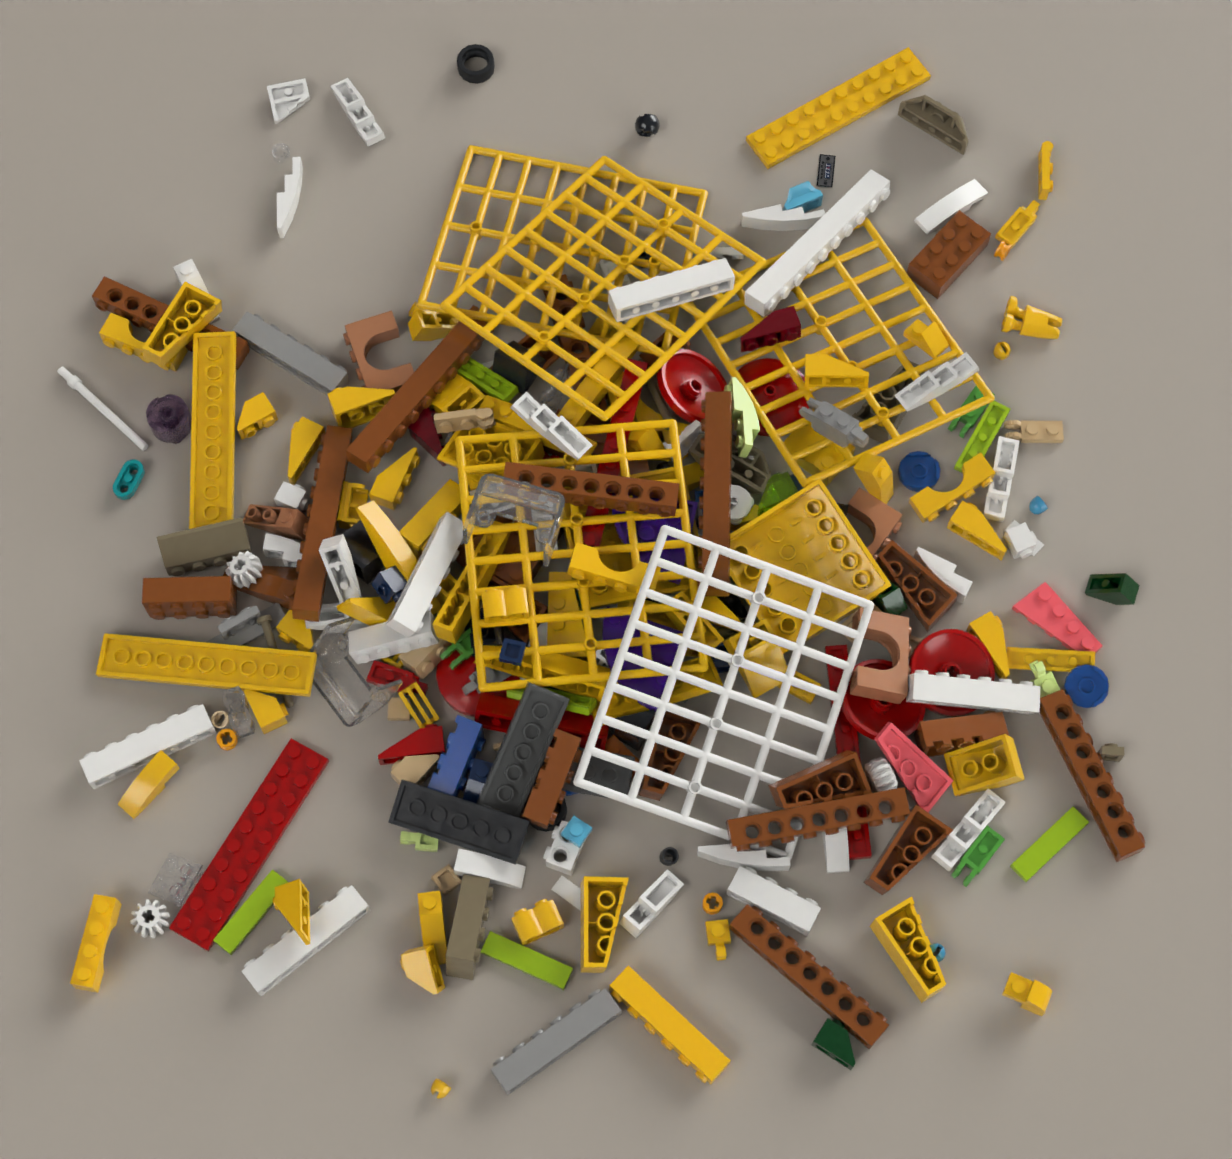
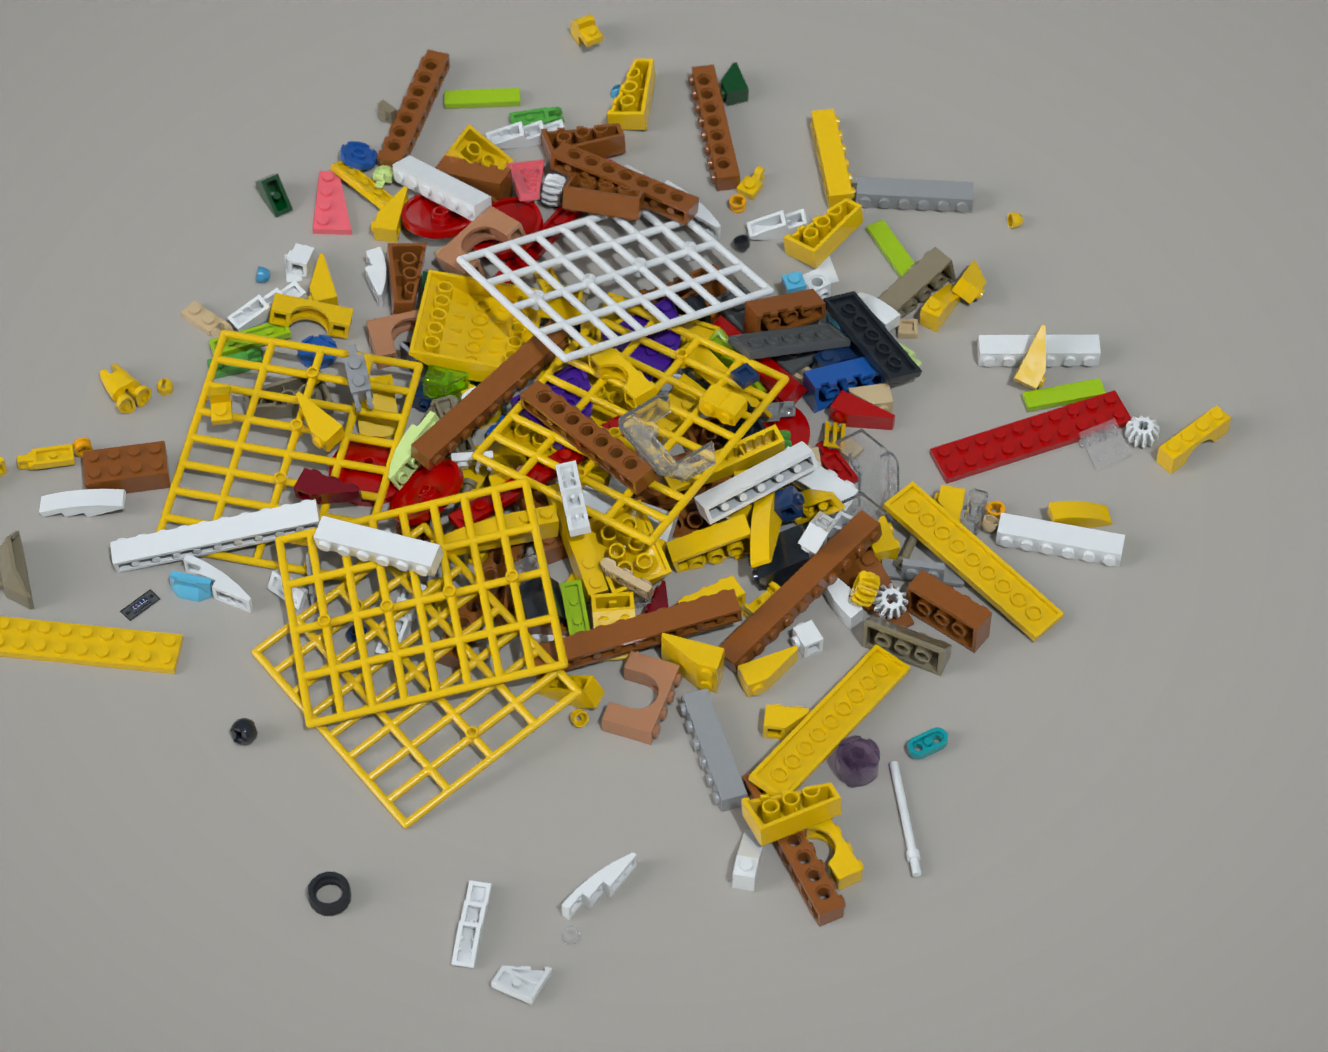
camera: 140 degrees left, 15 degrees down
(267, 555) = (865, 589): none -> yellow gear
(277, 520) = (833, 631): nougat slope -> none
(537, 922) = (867, 262): yellow brick -> none
(774, 900) = (696, 175): white brick -> none
(875, 476) = (363, 337): yellow slope -> none
(936, 383) = (252, 363): white slope -> none

